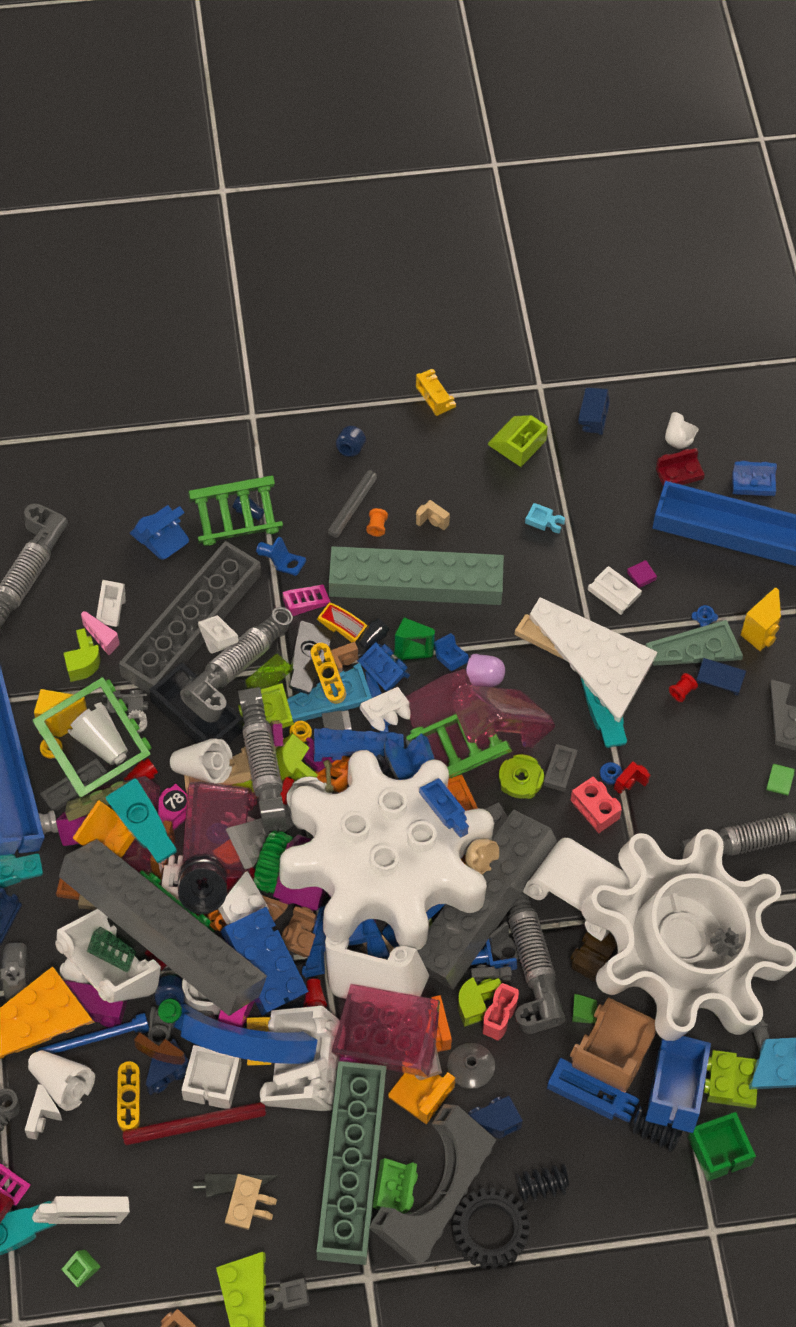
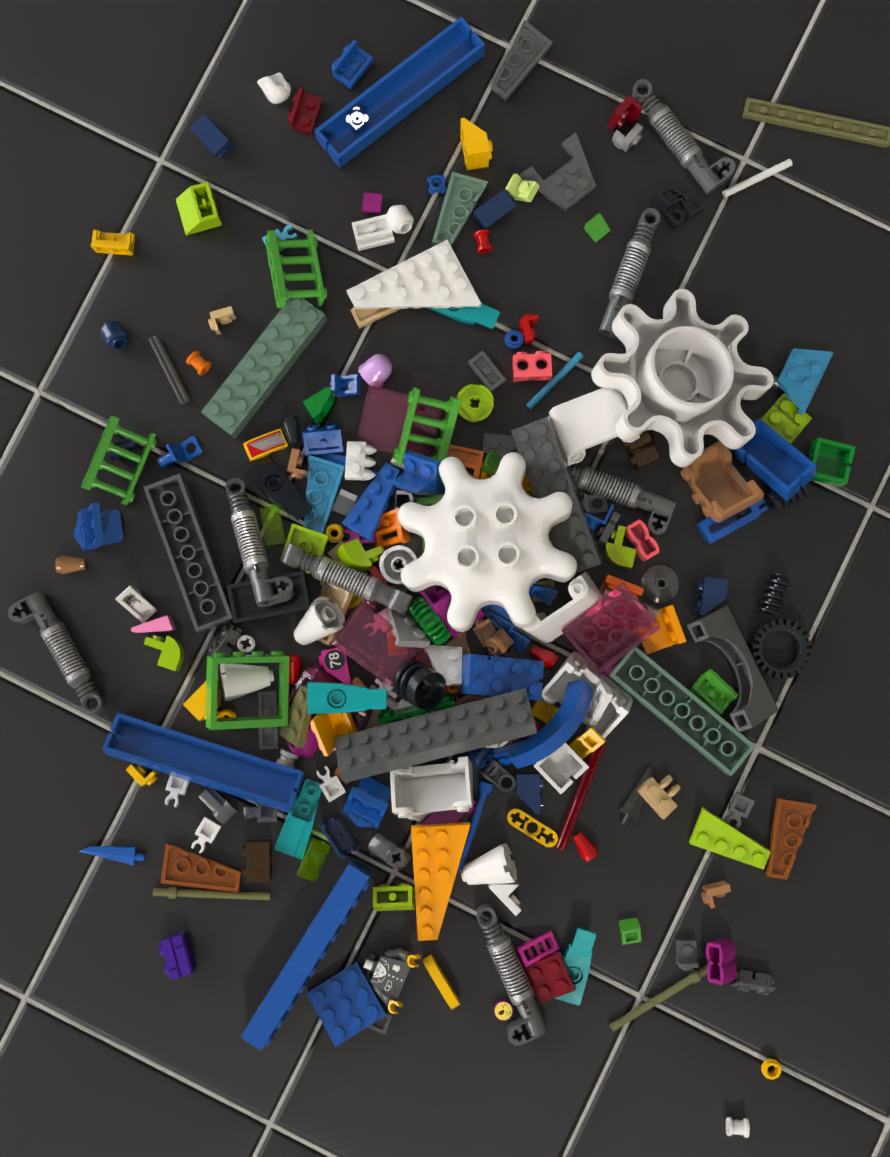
camera: 55 degrees left, 25 degrees up
(45, 878) = (331, 787): none -> white plate
(45, 916) = (367, 803): none -> blue piece
(83, 1210) = (601, 912): white hinge -> none
(102, 952) = (424, 778): clear green slope -> none
(108, 530) = (69, 564): none -> medium nougat cone
(141, 1163) = (585, 847): none -> red cone
(165, 1052) = (527, 788): reddish brown slope -> none
(169, 1011) = (496, 766): green plate -> none
(217, 634) = (221, 544): white slope -> none
(253, 1088) = (587, 742): none -> yellow slope
(277, 732) = (331, 553): magenta tile -> none
(297, 594) = (219, 462): dark pink slope -> none
(328, 788) = (403, 547): olive hinge -> none
(338, 684) = (309, 492): yellow beam -> none
(445, 806) = (492, 482): blue hinge -> none
(481, 854) = (534, 480): tan hair -> none
(496, 710) = (426, 387): clear pink windscreen -> none
(521, 523) = (279, 277): none -> bright green fence
(584, 1009) = (672, 482): bright green slope -> none
(592, 834) = (554, 381): none -> dark azure bar
(645, 603) = (400, 219): none -> white head
(703, 505) = (350, 118): none -> plate
(725, 942) = (713, 359): dark grey gear -> none
(760, 687) = (522, 189): none -> yellowish green bracket

